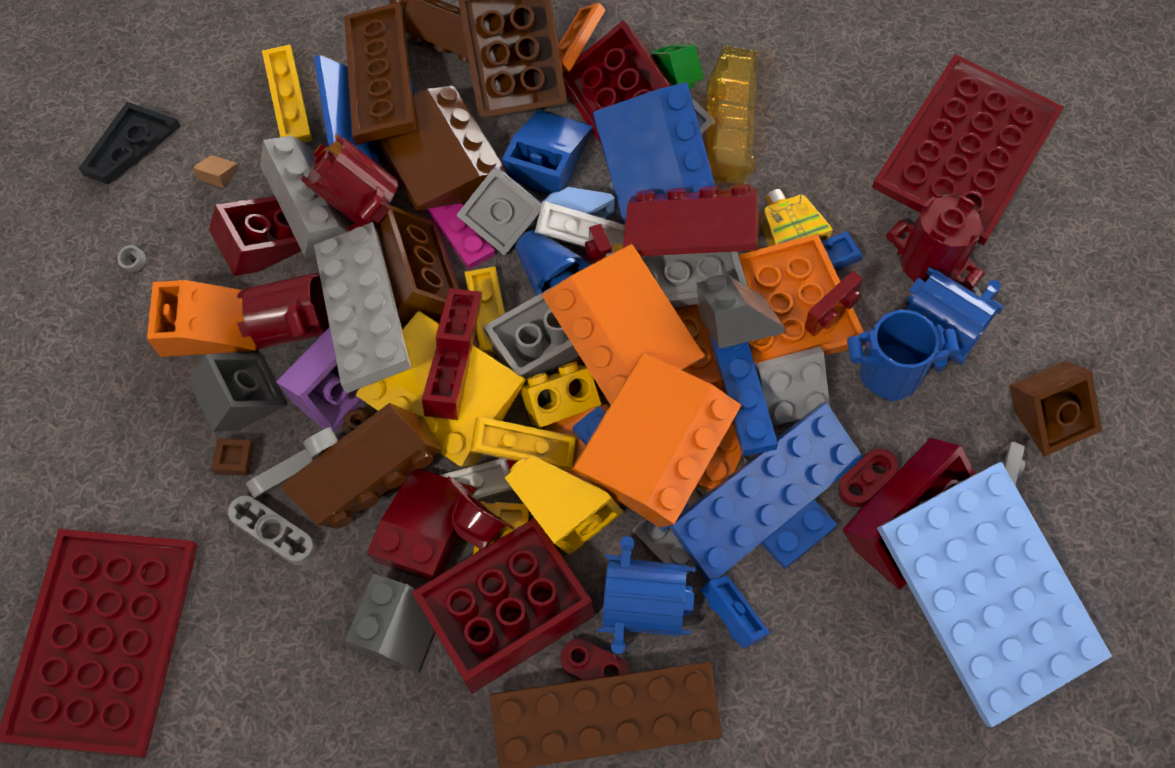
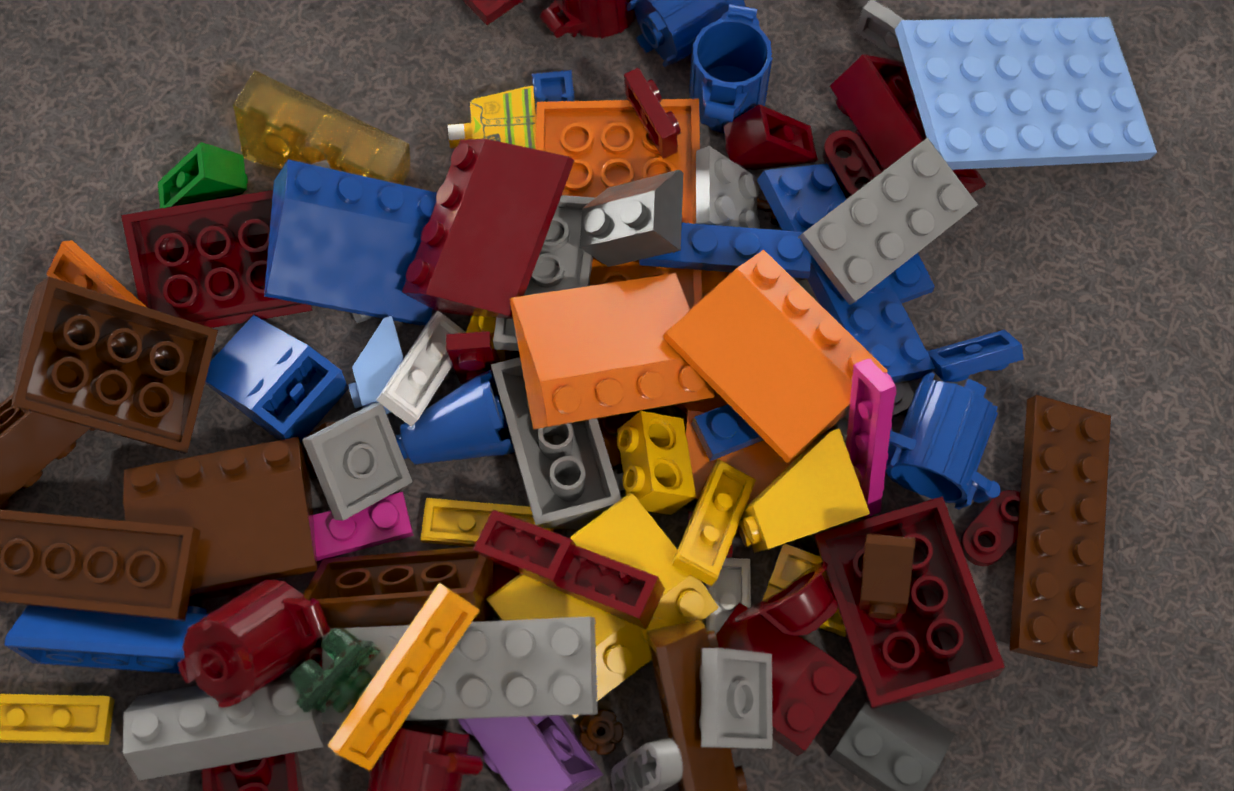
camera: 75 degrees left, 5 degrees up
(335, 235) = (343, 680): none -> clear green hips
(340, 264) = (403, 677): none -> light orange plate
(381, 483) = (736, 699): none -> light grey plate
(504, 565) = (886, 575): none -> reddish brown slope
(616, 525) = (870, 429): none -> dark pink plate
(812, 498) = (888, 221): none -> light grey plate
(863, 409) = (768, 140): none -> dark red slope

